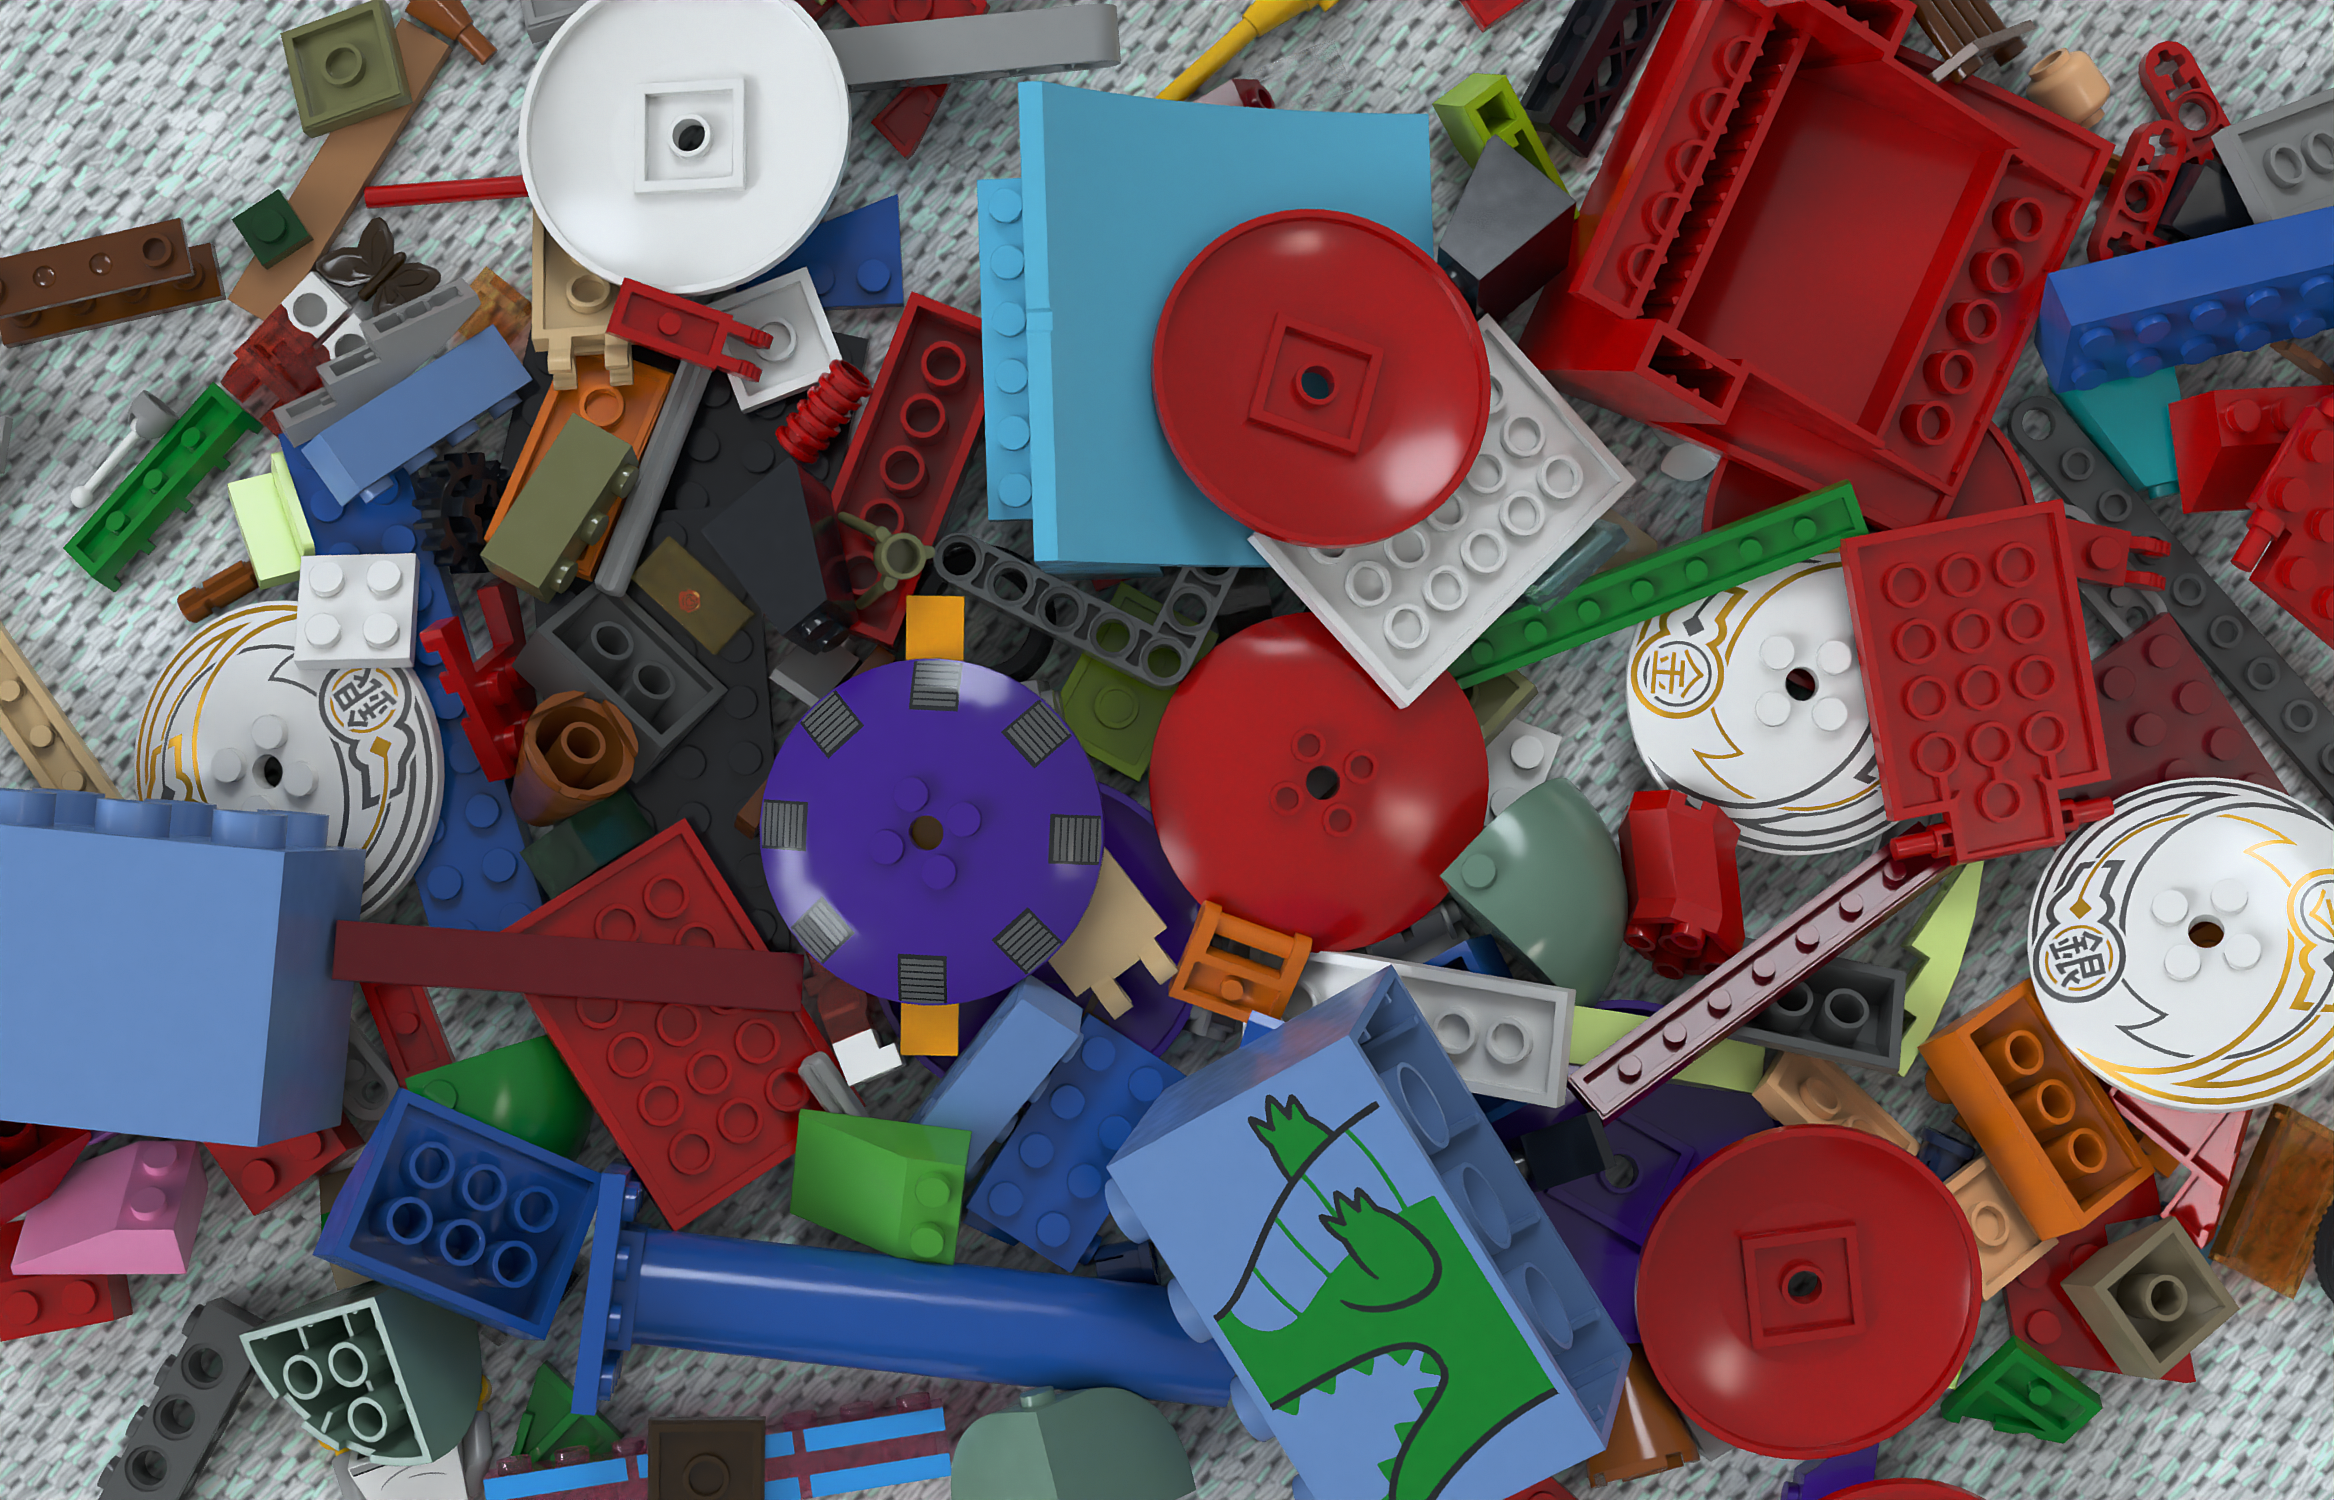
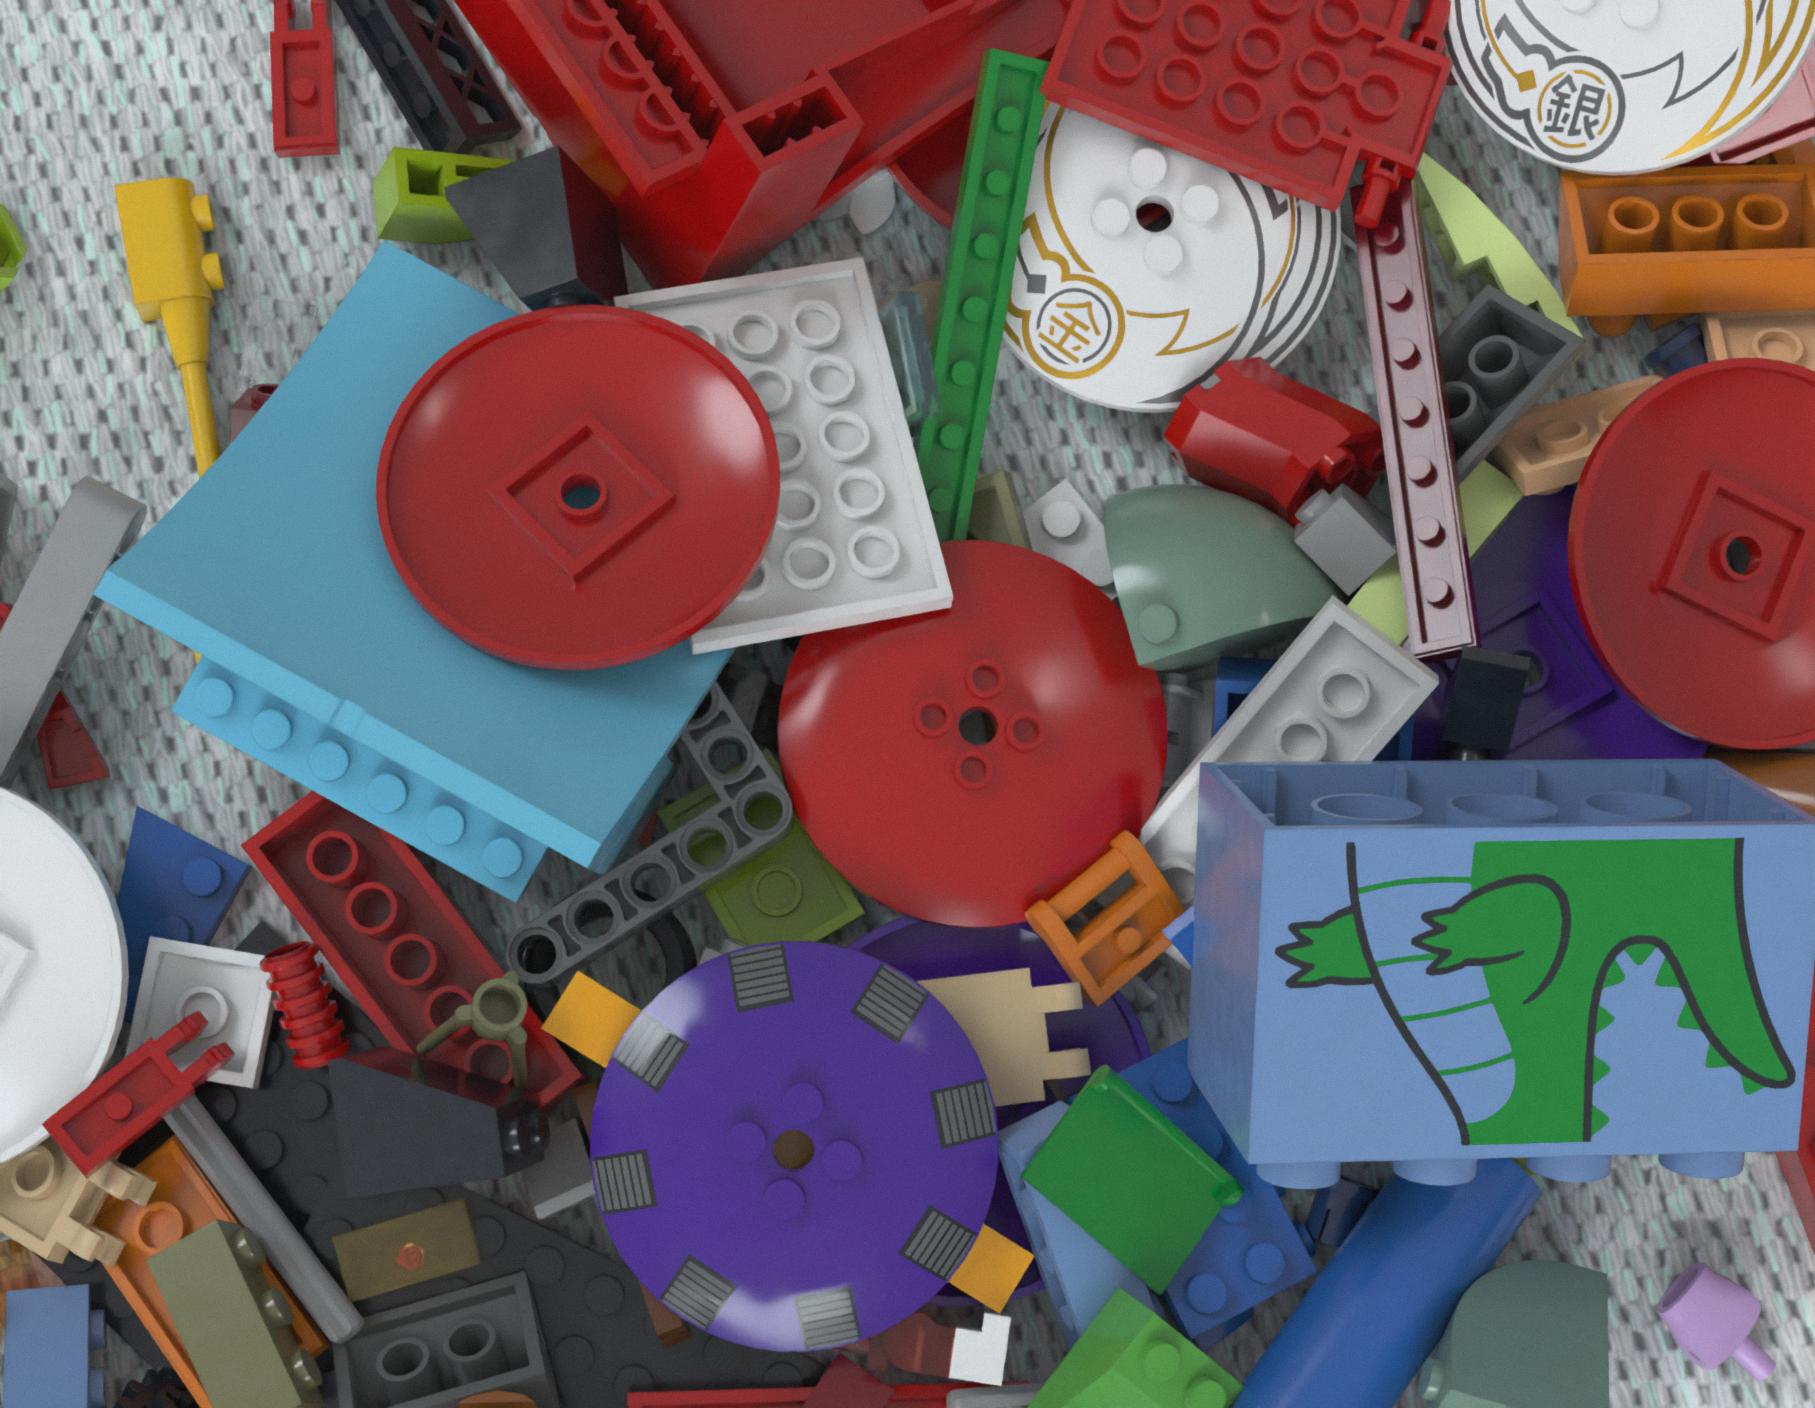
camera: 50 degrees left, 5 degrees down
(1053, 1093) = (1130, 1178): none -> green piece
(1637, 974) = (1345, 536): none -> light grey slope

